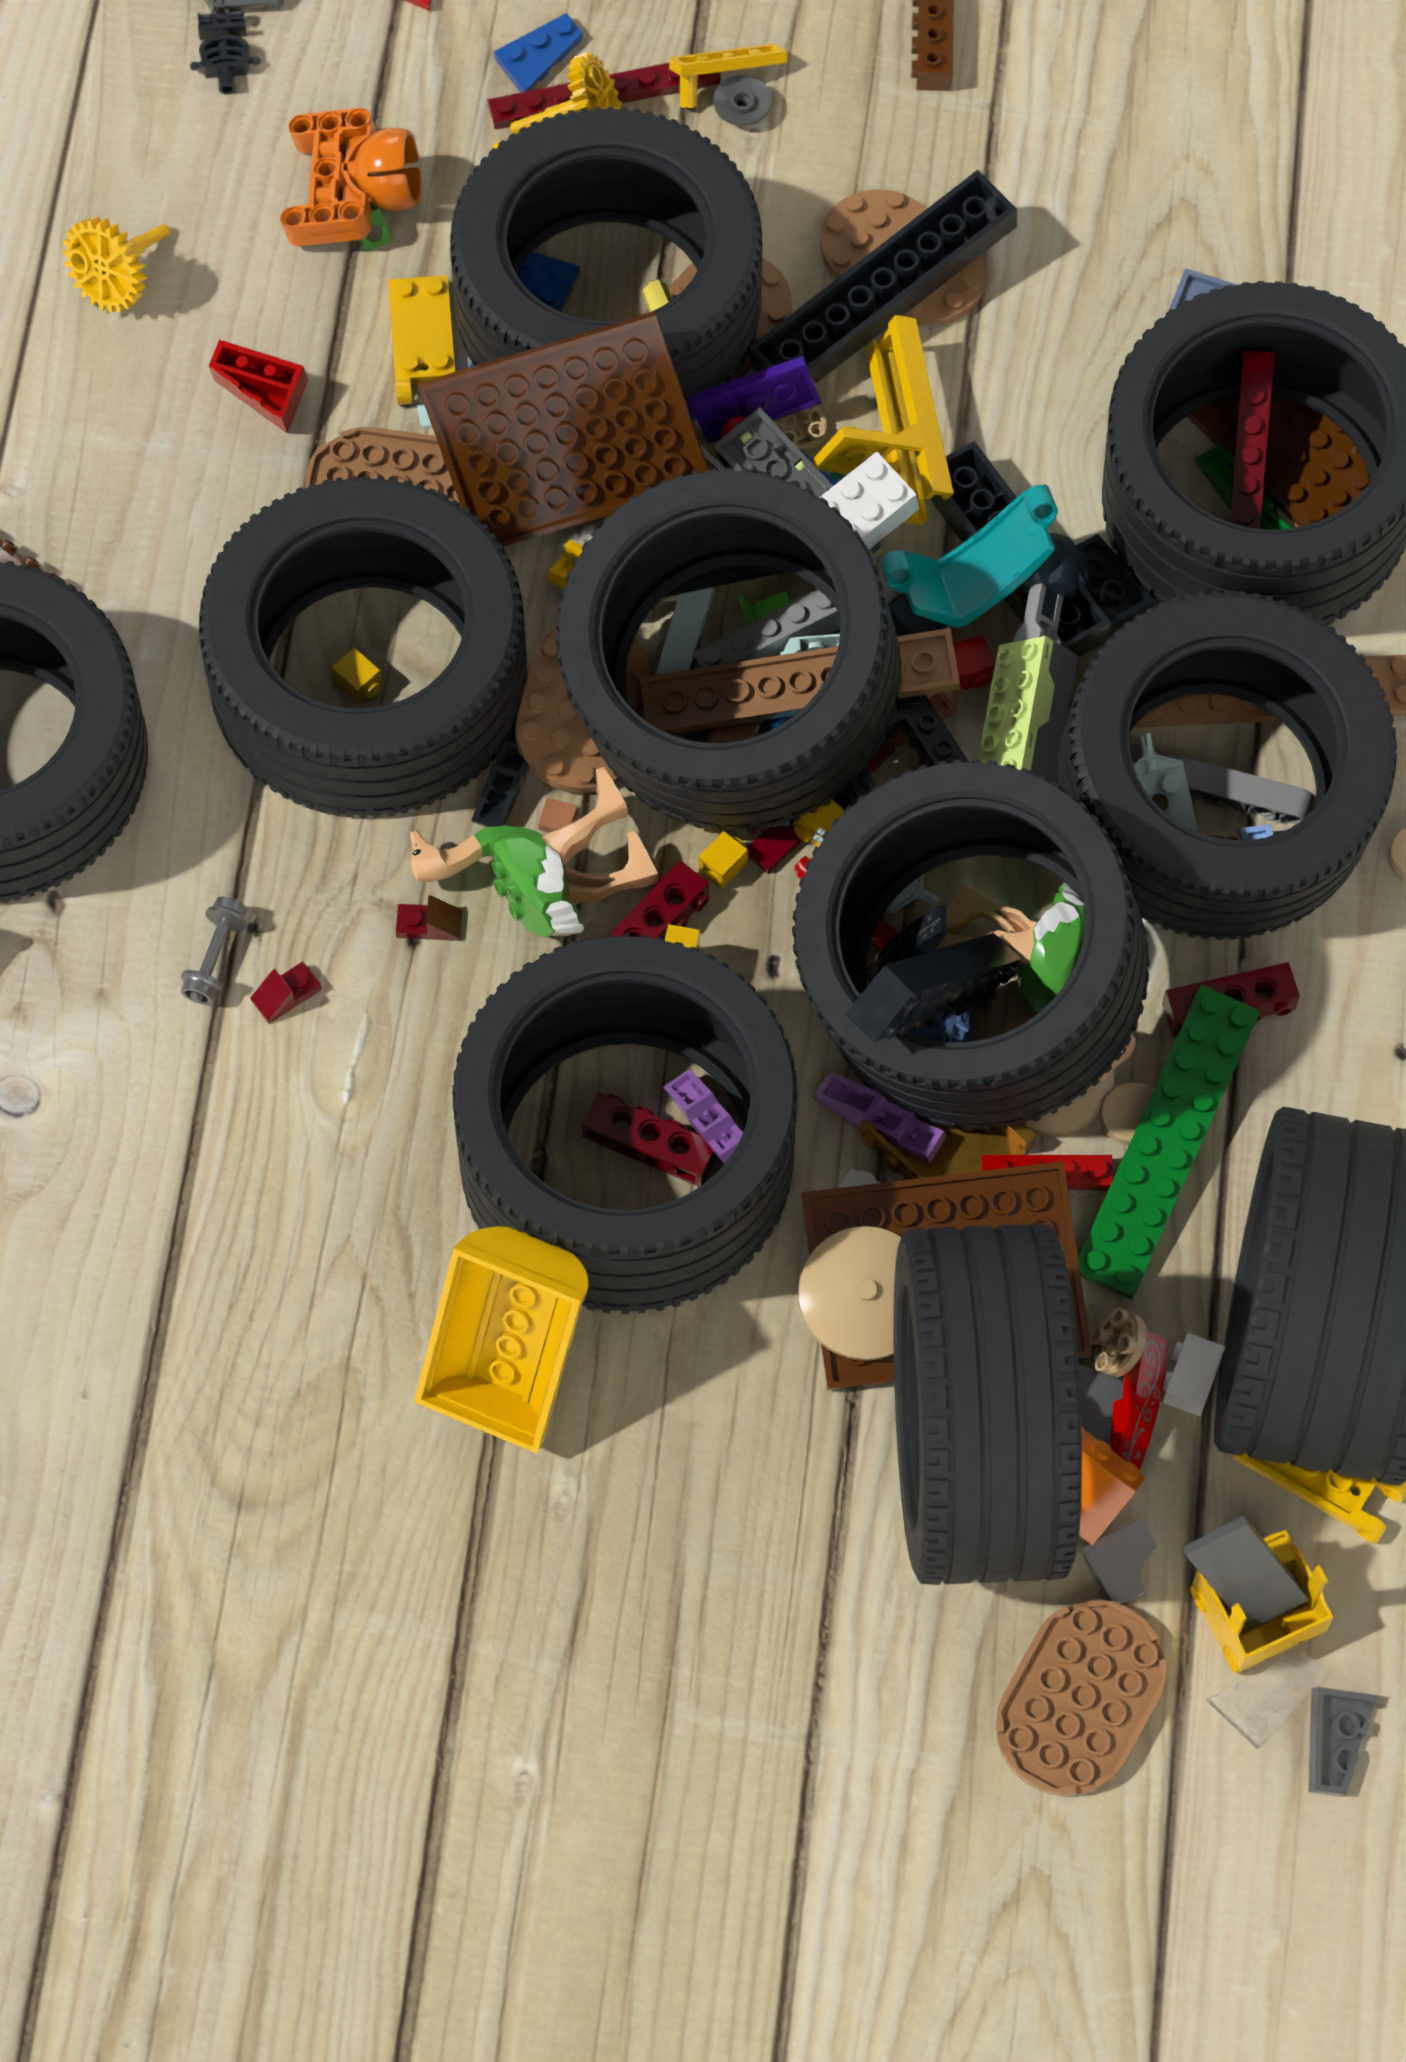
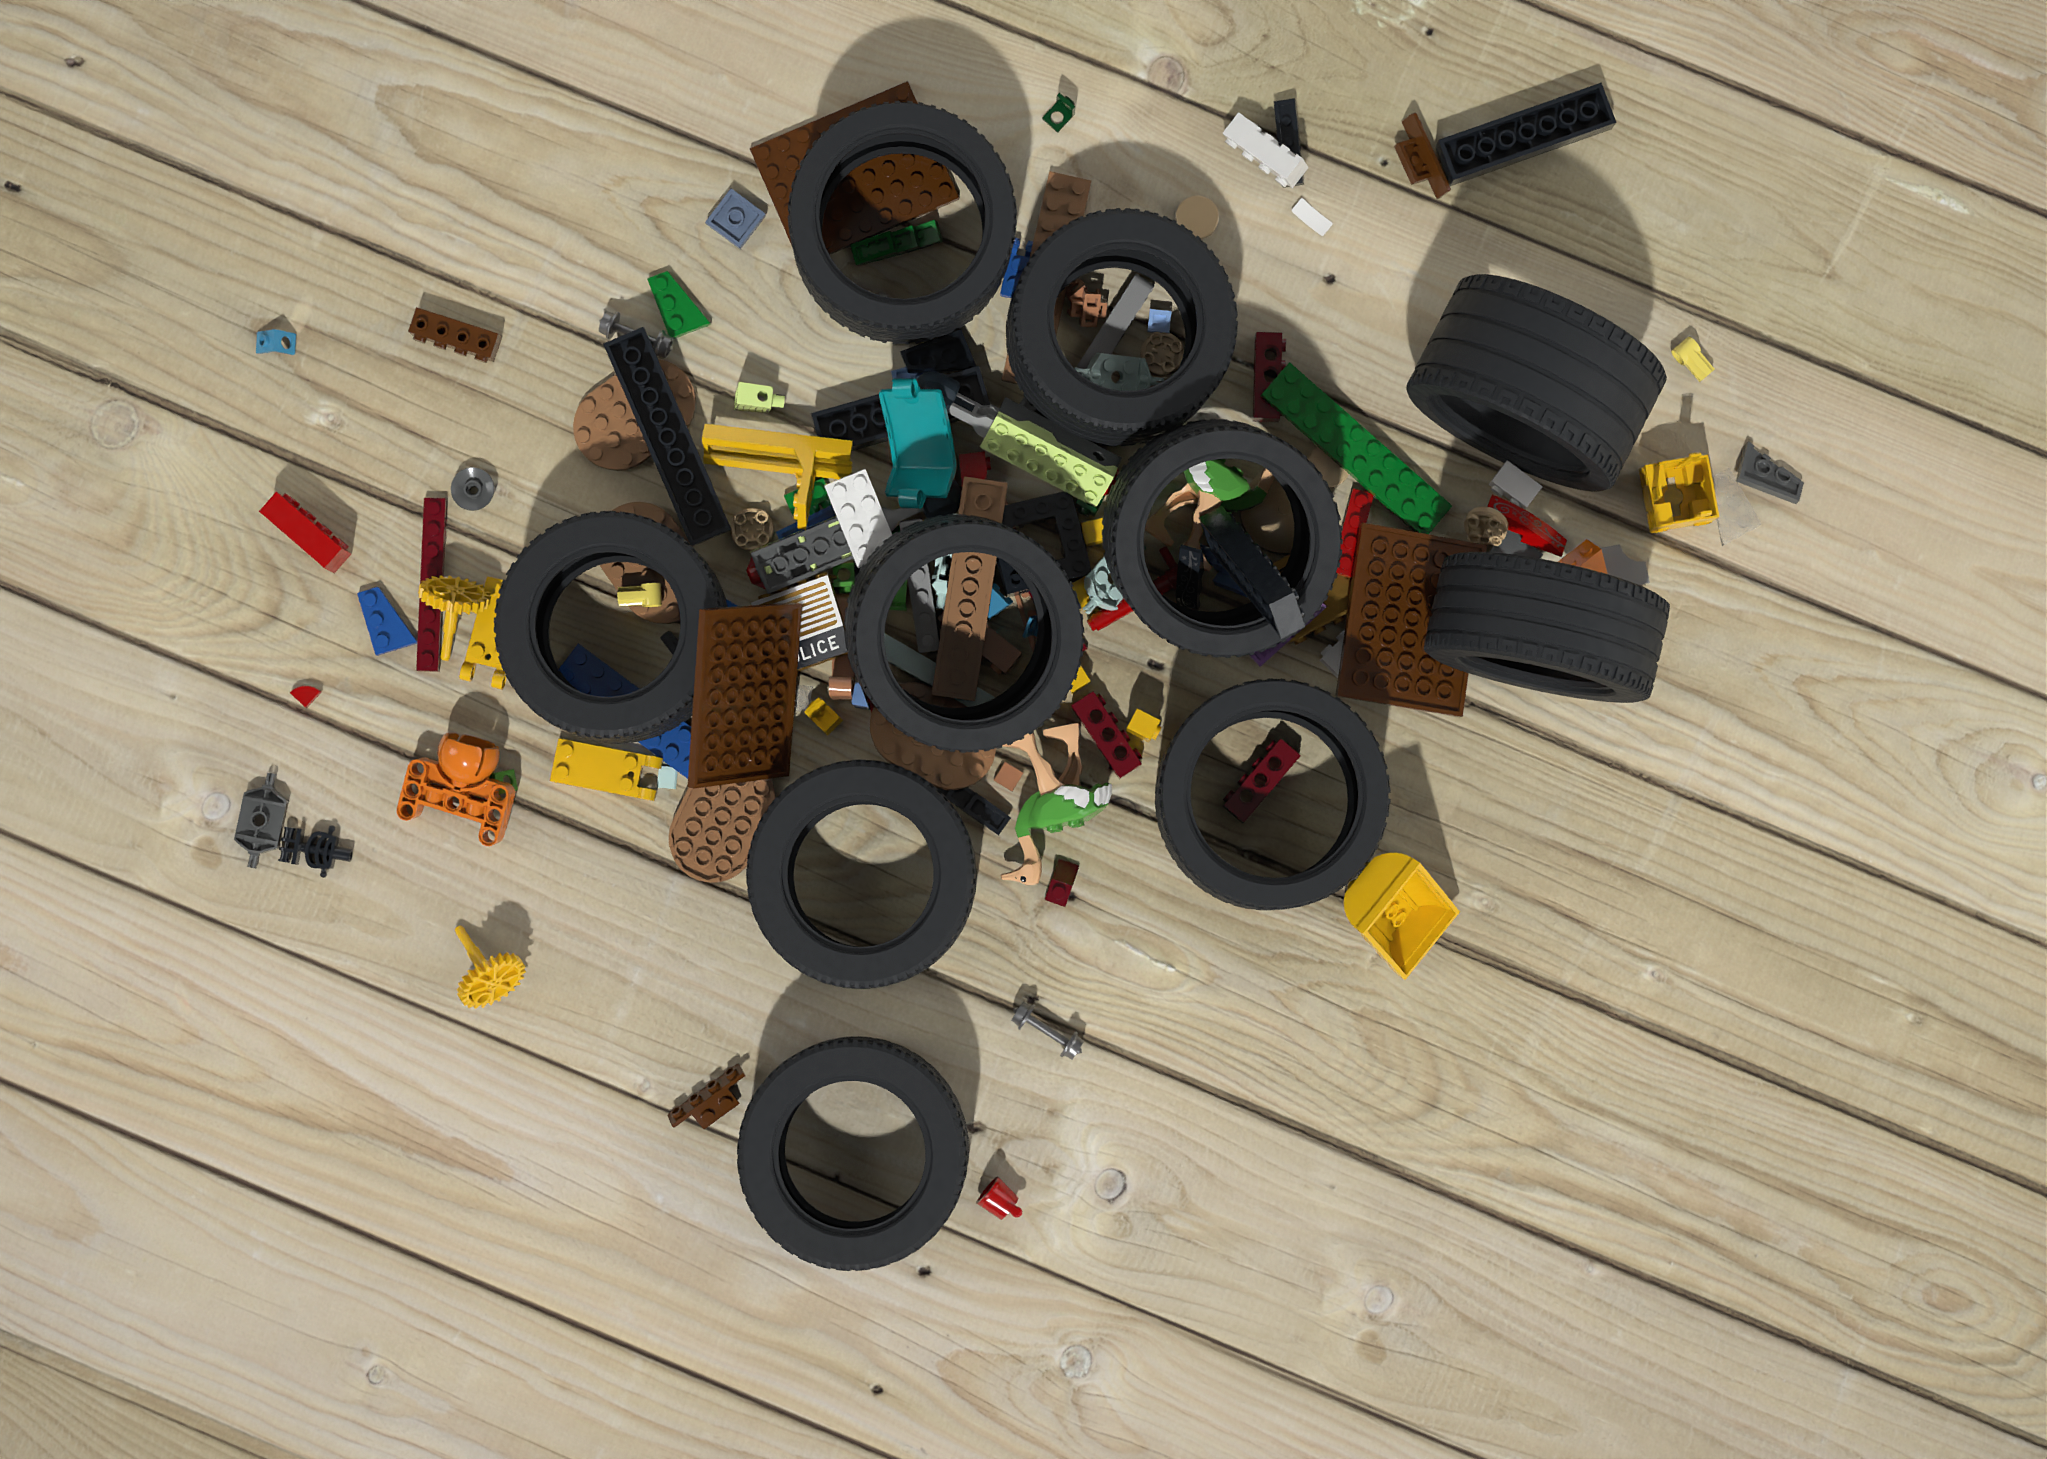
camera: 70 degrees left, 20 degrees up
(260, 381) = (613, 892): red wedge -> none
(284, 992) = (1087, 990): dark red slope -> none
(357, 676) = (866, 883): yellow brick -> none
(692, 65) = (439, 493): yellow piece -> none
(705, 1114) = (1264, 740): medium lavender slope -> none
(776, 390) = (736, 550): dark purple plate -> none
(850, 1292) = (1408, 679): tan dish -> none
(972, 379) = (747, 398): none -> yellowish green torso
(1006, 257) = (610, 324): none -> flat silver piece
(1059, 269) = (675, 306): none -> green wing
(1081, 1698) = (1707, 622): medium nougat plate -> none
(1235, 745) = (1081, 296): none -> nougat piece
(1246, 1572) = (1673, 499): dark grey tile -> none
(1252, 439) = (893, 235): dark red plate -> none

